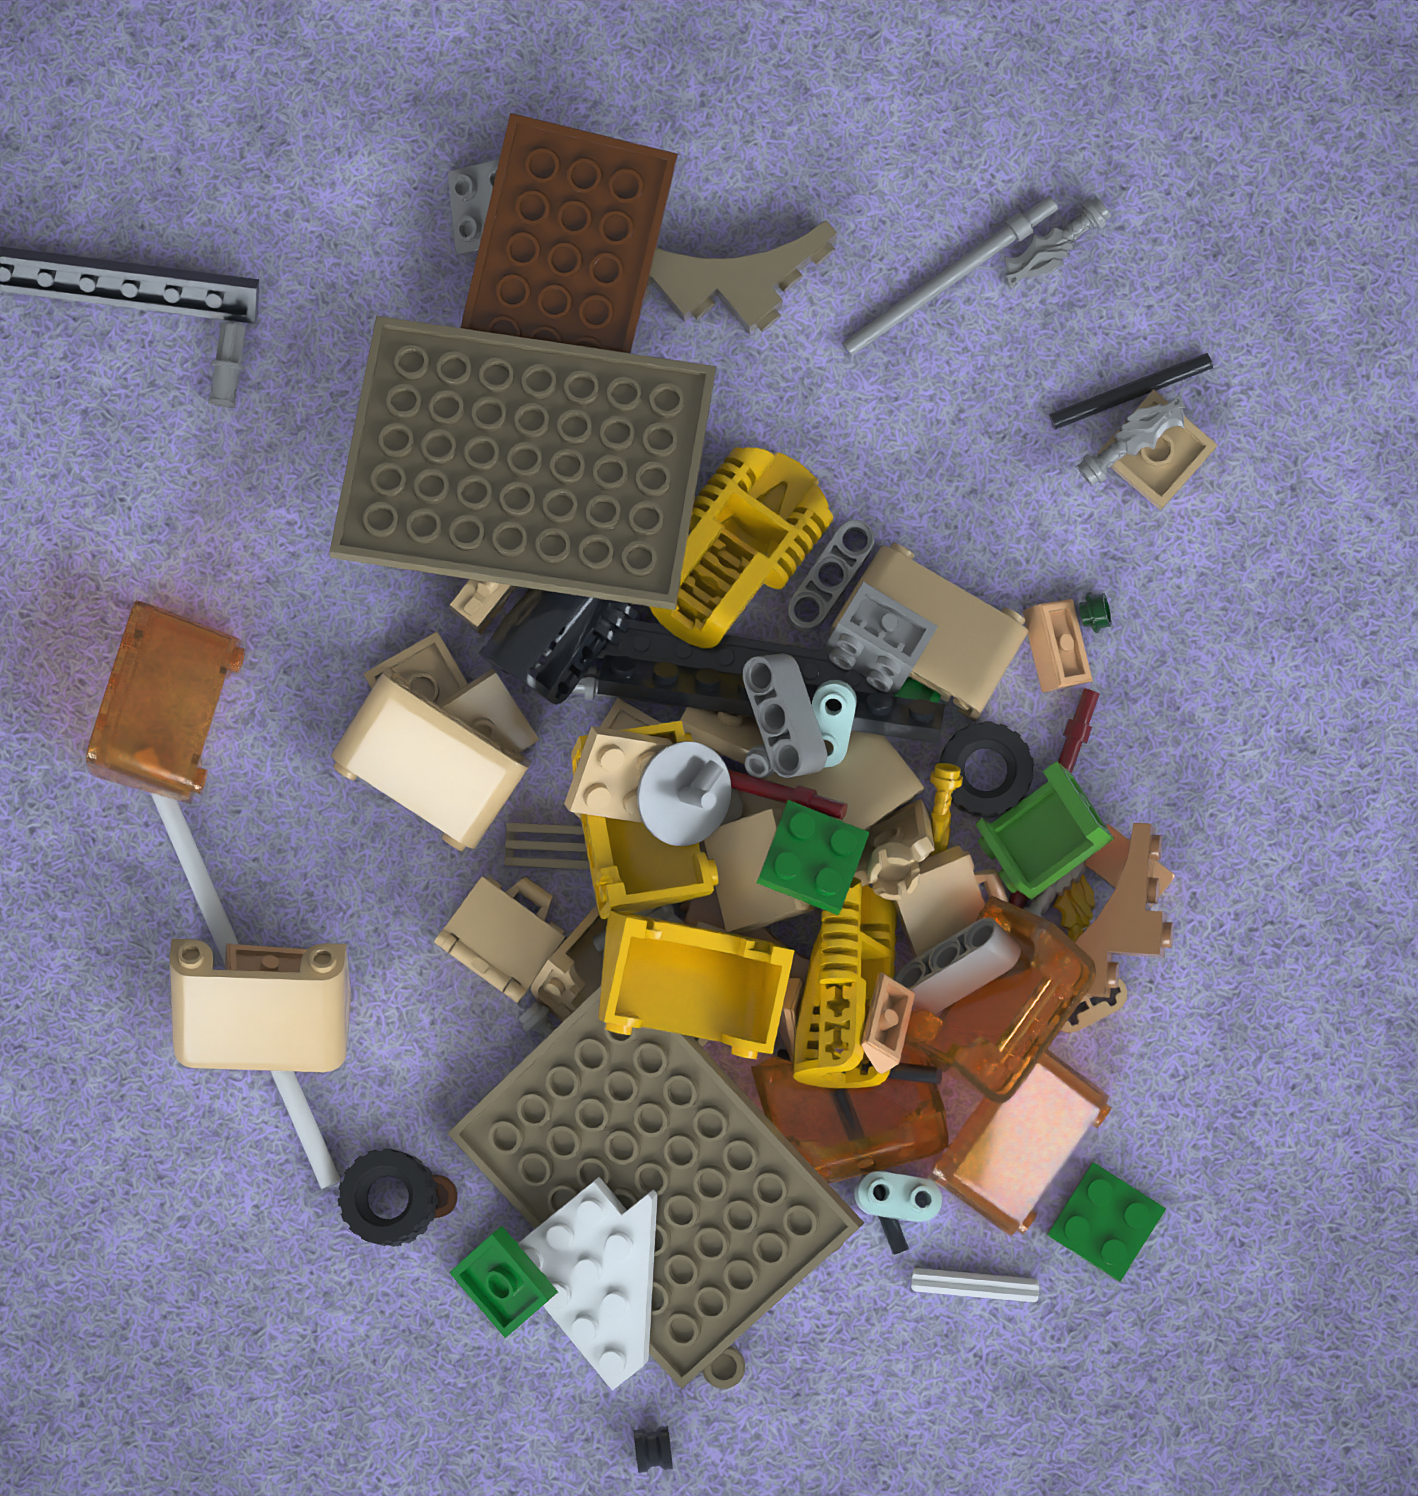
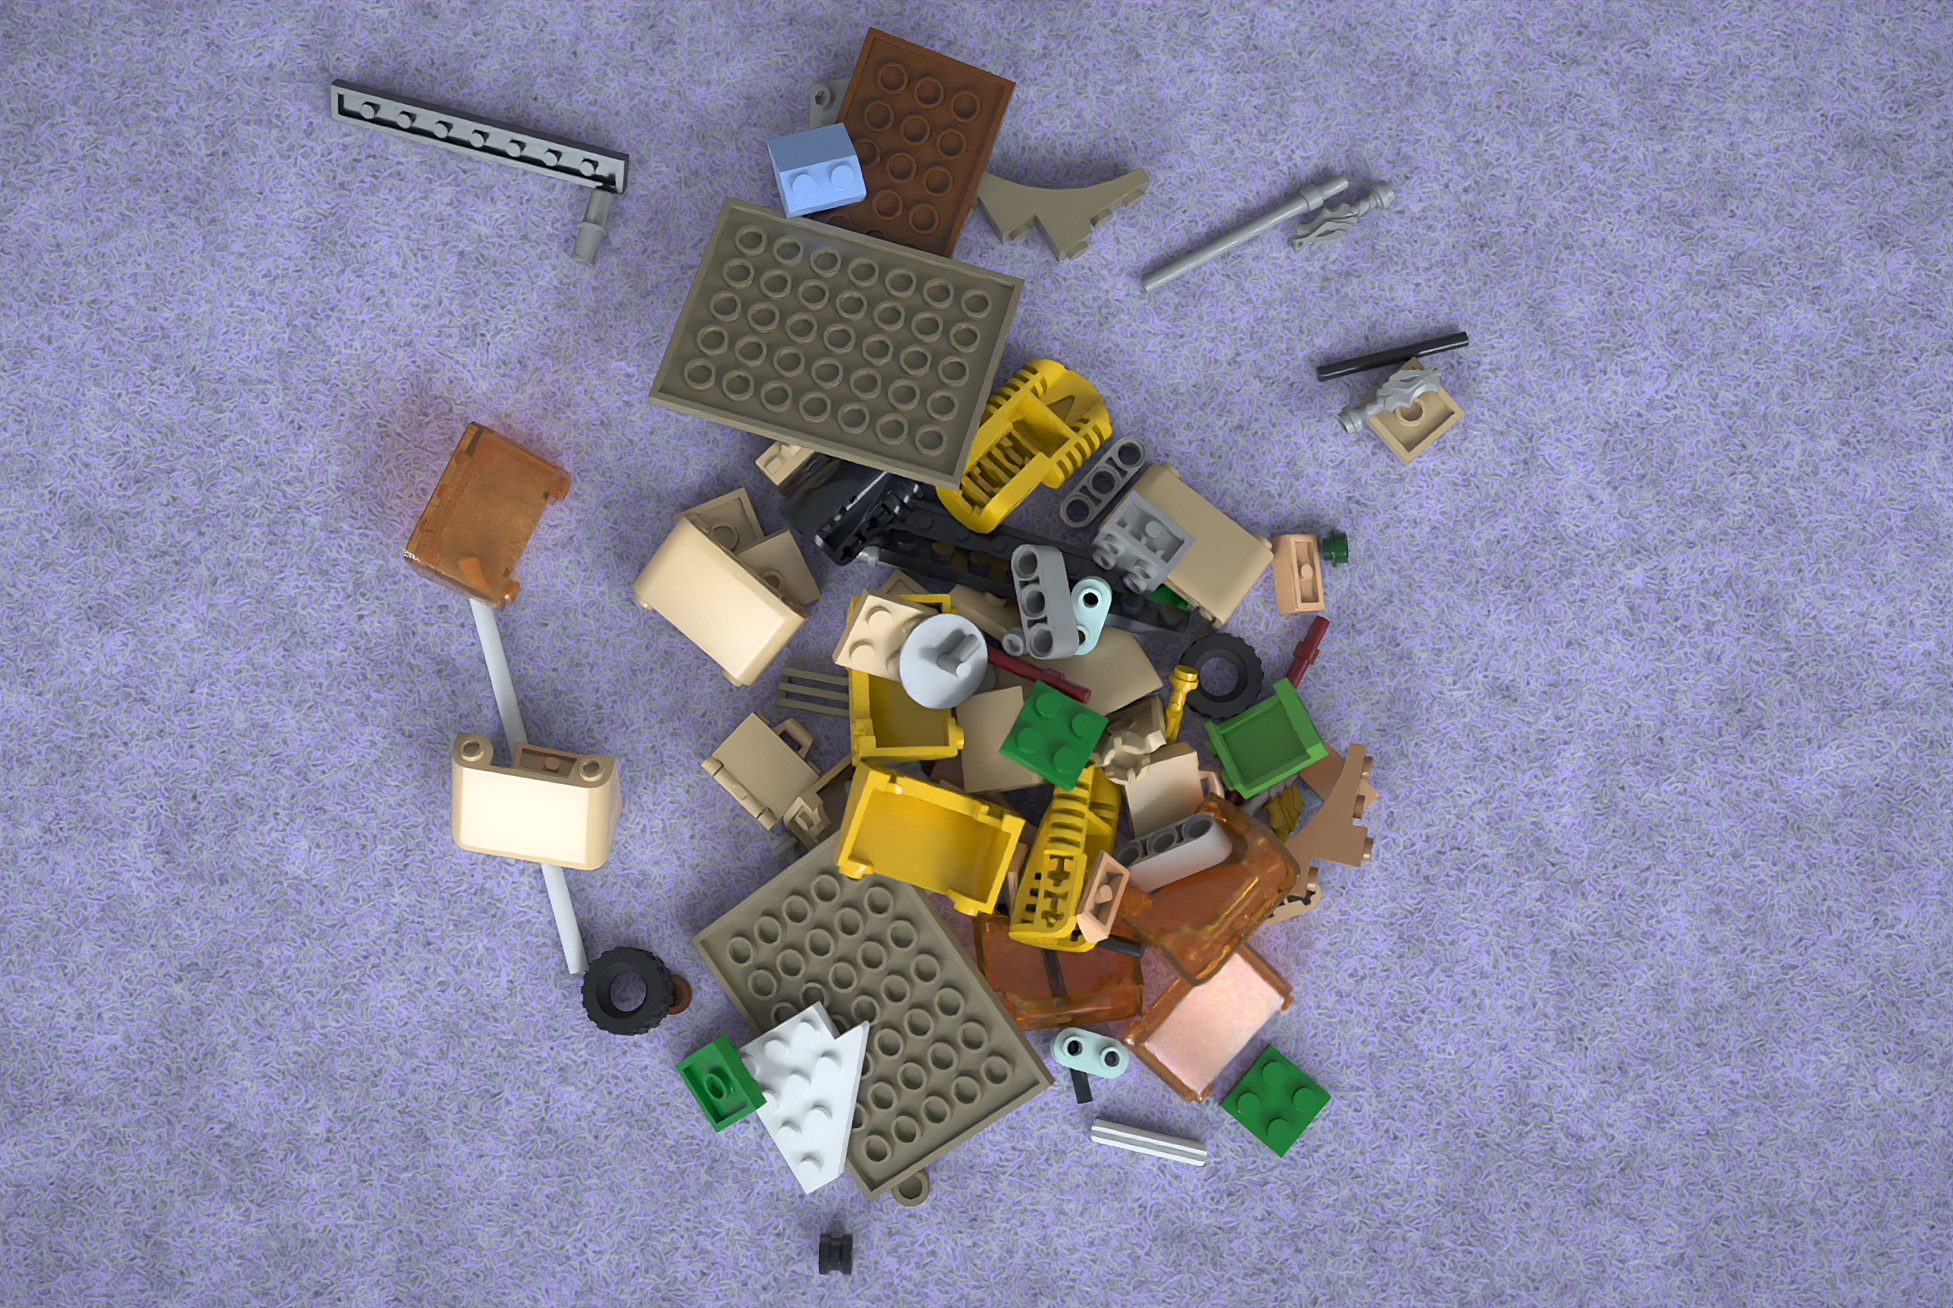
camera: 10 degrees right, 0 degrees up
(472, 276) = (816, 170): none -> light blue slope

